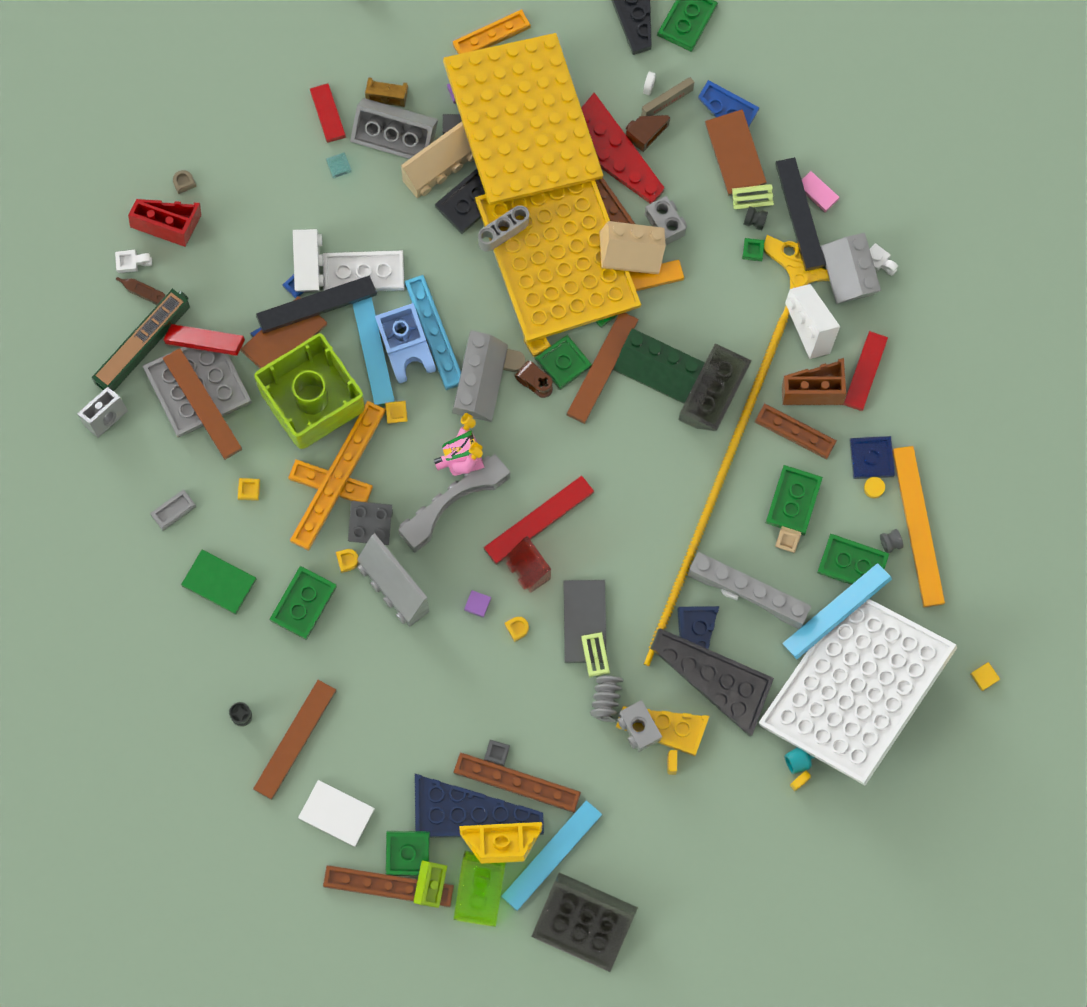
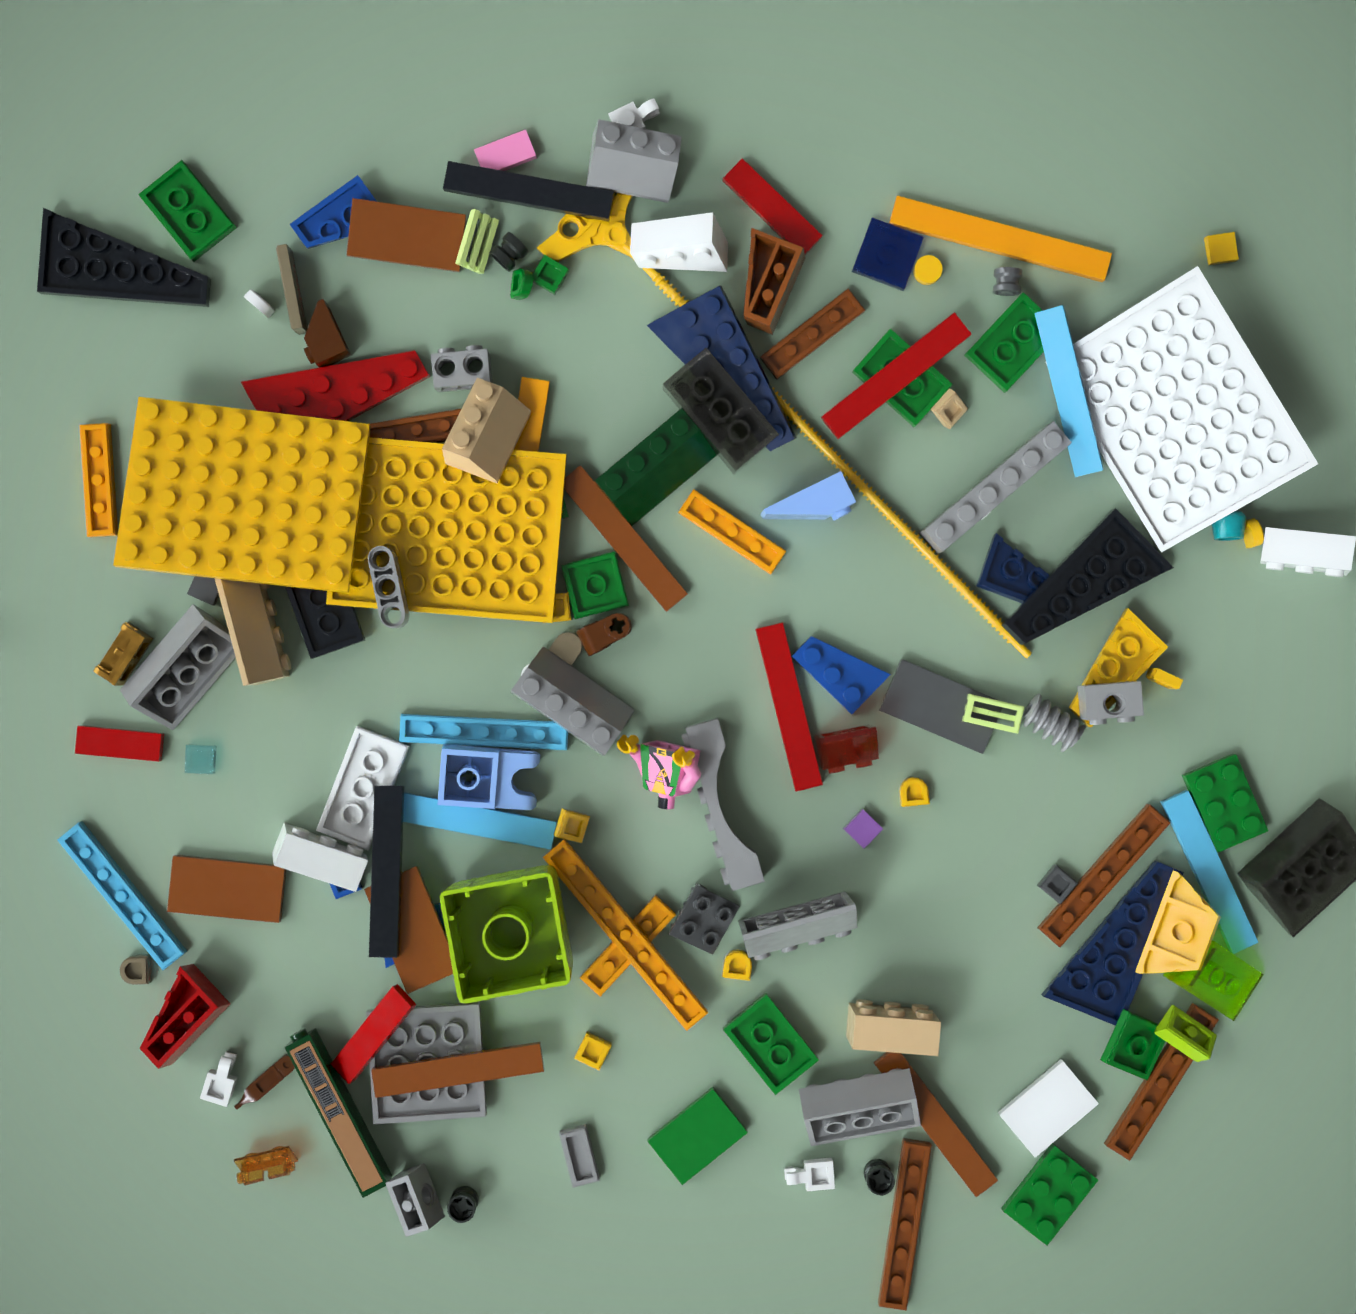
camera: 60 degrees left, 15 degrees up
(89, 311) = (278, 1162): none -> clear orange hinge
(109, 441) = (460, 1210): none -> pearl dark grey wheel
(213, 748) = (904, 1224): none -> dark orange tile
(225, 670) = (816, 1174): none -> white plate
(228, 154) = (122, 895): none -> medium azure tile
(260, 215) = (226, 888): none -> dark orange tile
(275, 841) = (1049, 1194): none -> green plate
(284, 679) = (859, 1107): none -> light grey slope
(350, 674) = (893, 1028): none -> tan brick
(576, 544) = (839, 673): none -> blue wing
(605, 845) = (1225, 802): none -> green plate
(639, 434) = (732, 532): none -> light orange tile
(684, 474) = (818, 502): none -> light blue slope
(738, 234) = (521, 284): none -> green tile
(768, 364) = (714, 325): none -> dark blue wing
(792, 492) = (896, 375): none -> red tile
(806, 823) = (1308, 551): none -> white wedge

